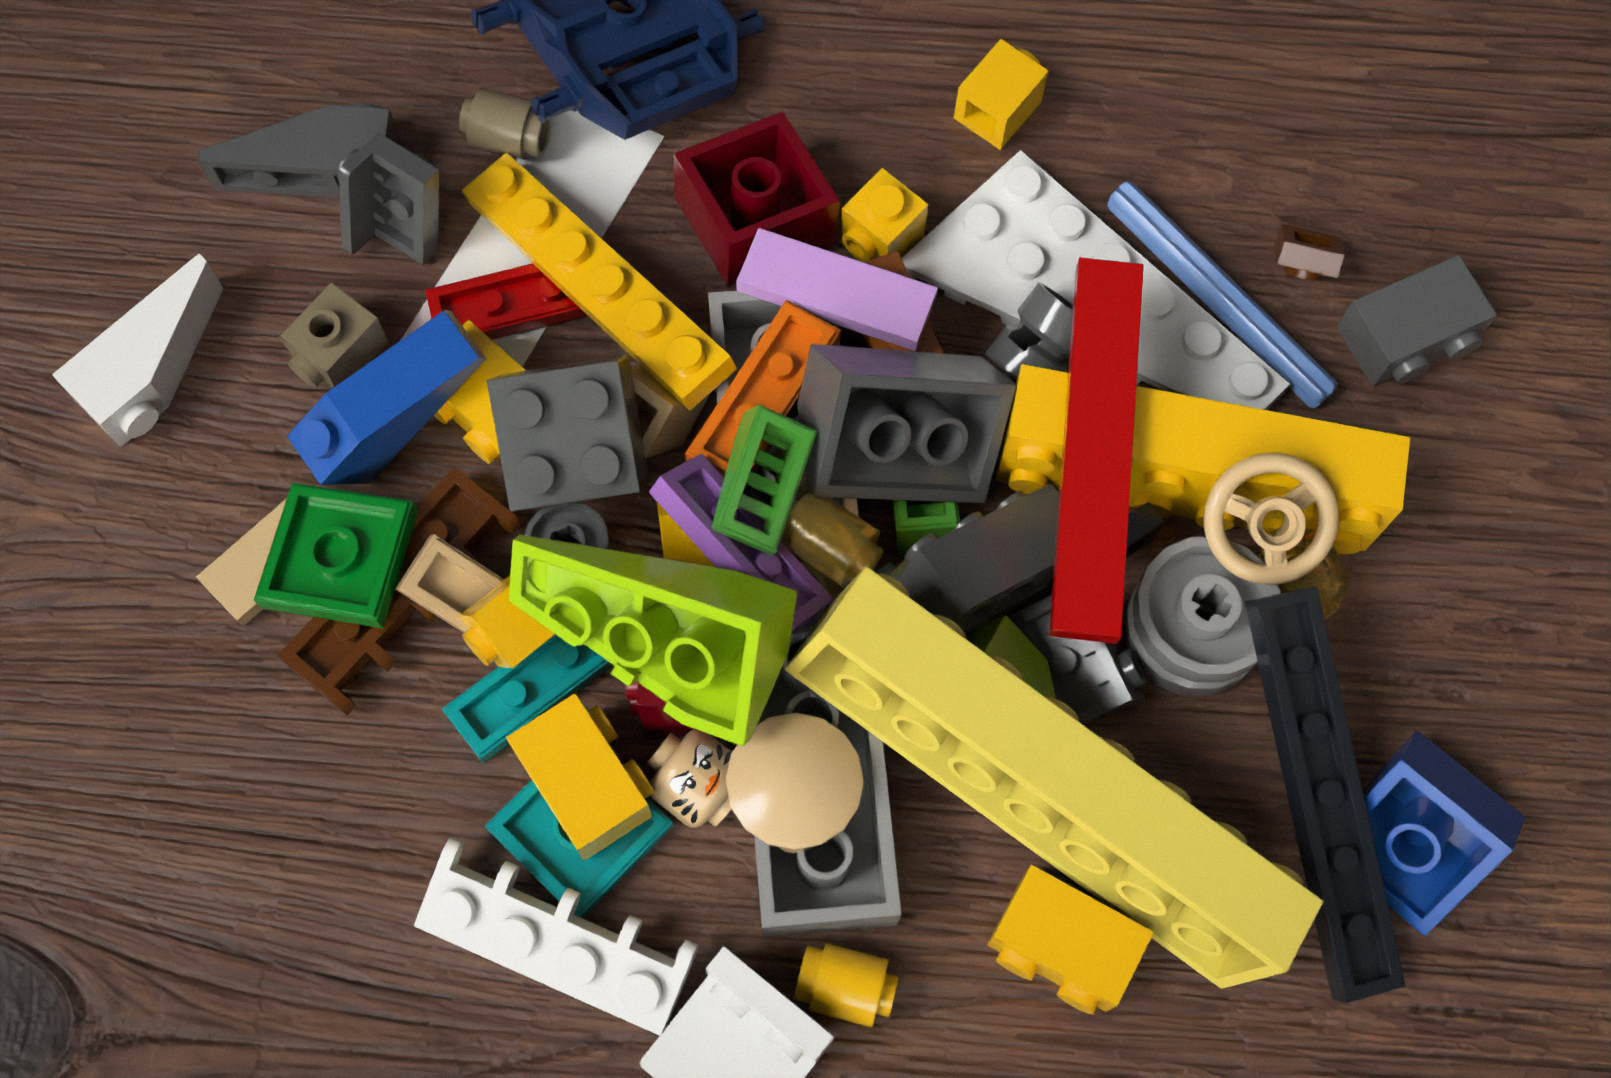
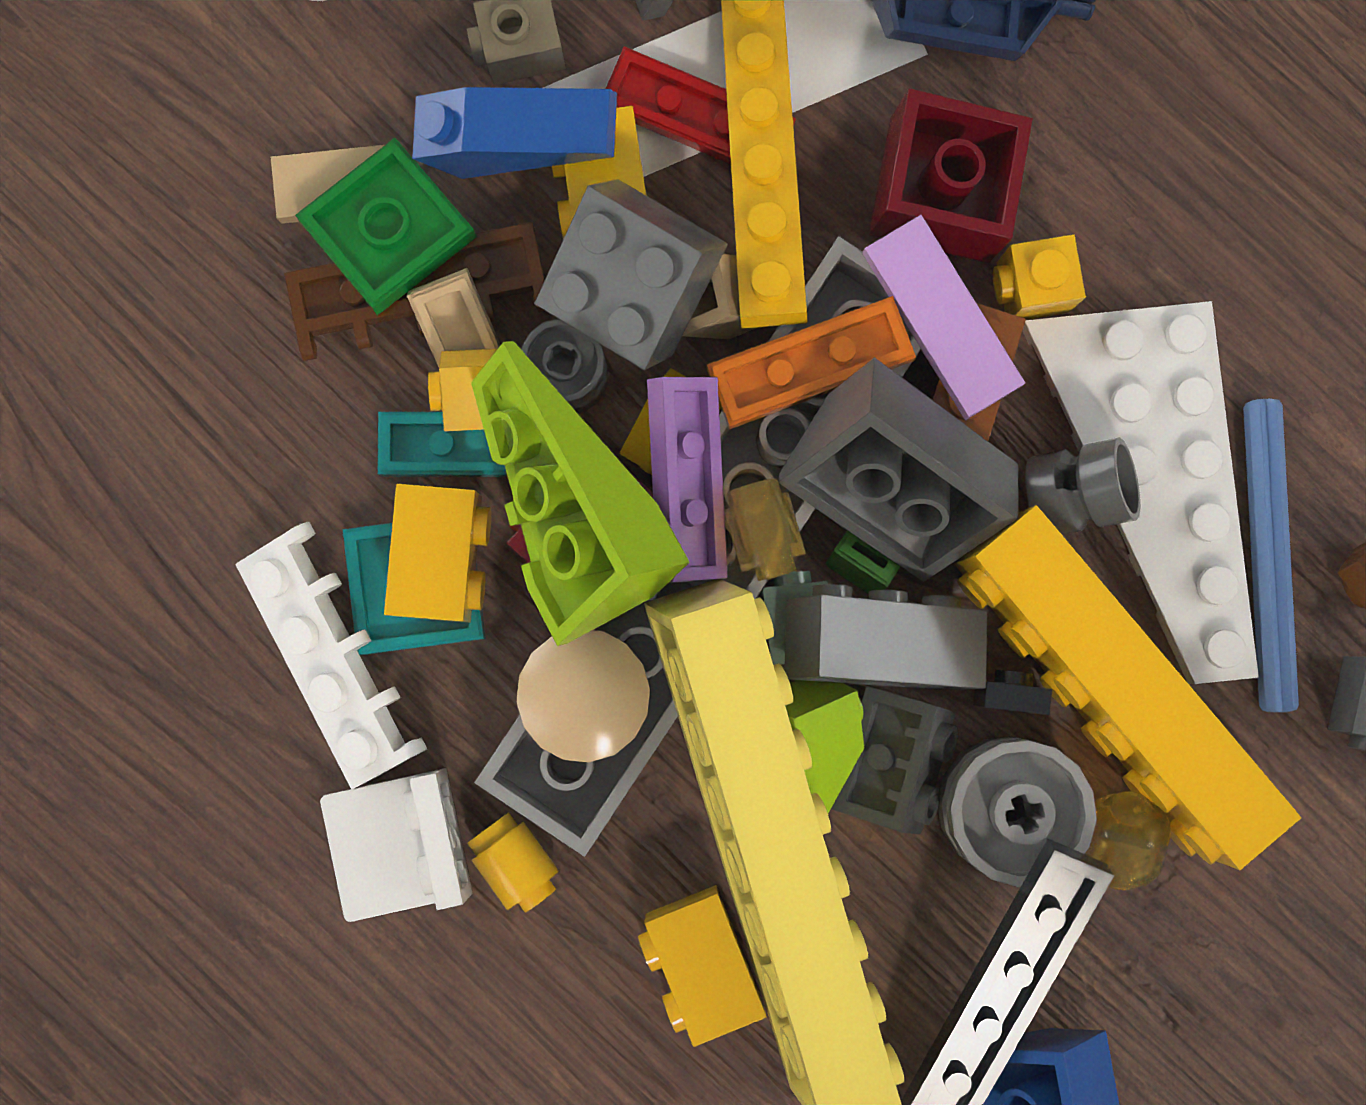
camera: 40 degrees right, 15 degrees up
(692, 778) = (513, 621): tan head -> none
(796, 442) = (776, 445): bright green slope -> none
(1001, 93) = (1239, 237): yellow brick -> none
(1097, 452) = (1037, 624): red tile -> none
(1275, 543) = (1116, 818): tan piece -> none

